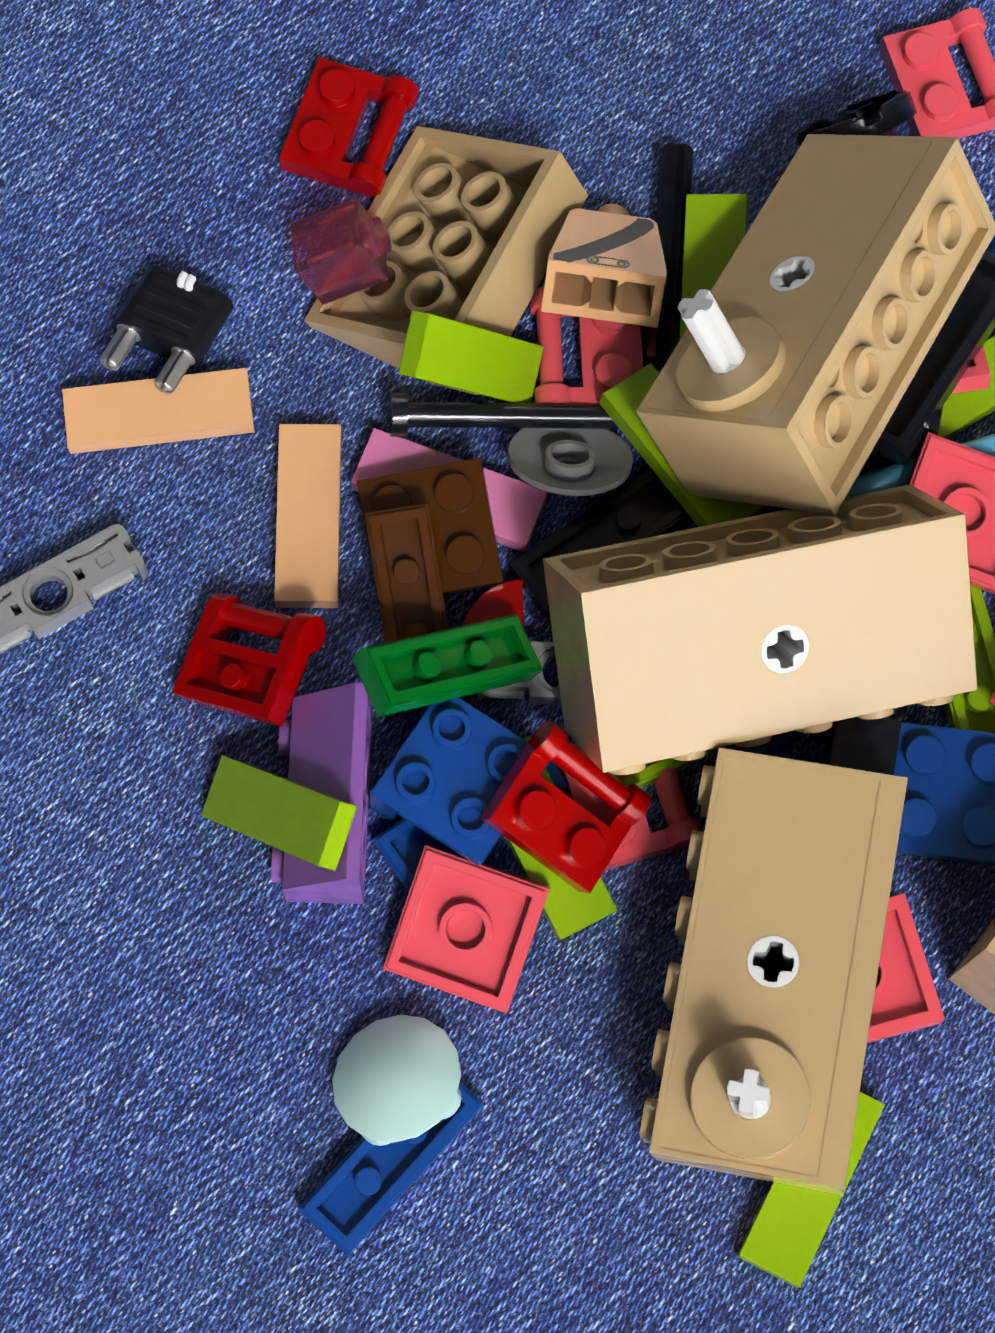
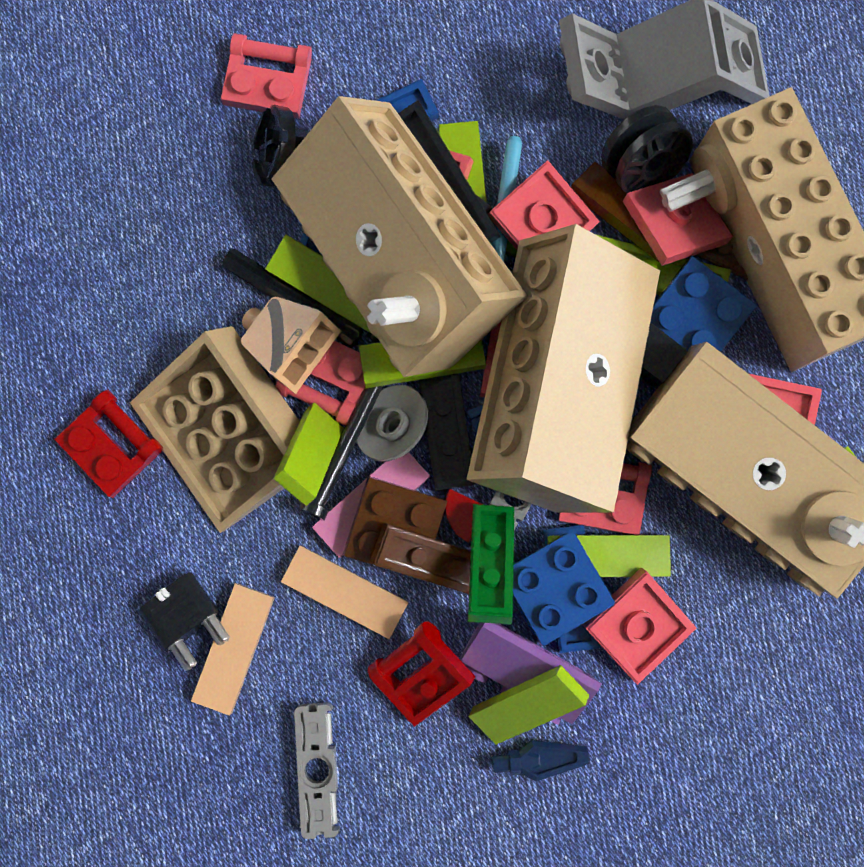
camera: 55 degrees left, 10 degrees up
(211, 889) = (541, 759): none -> dark blue piece
(340, 250) = (192, 492): clear pink brick -> none
(377, 1177) = (743, 733): blue tile -> none
(397, 1079) = (707, 710): light aqua dish -> none
(551, 823) = (612, 551): red plate -> none

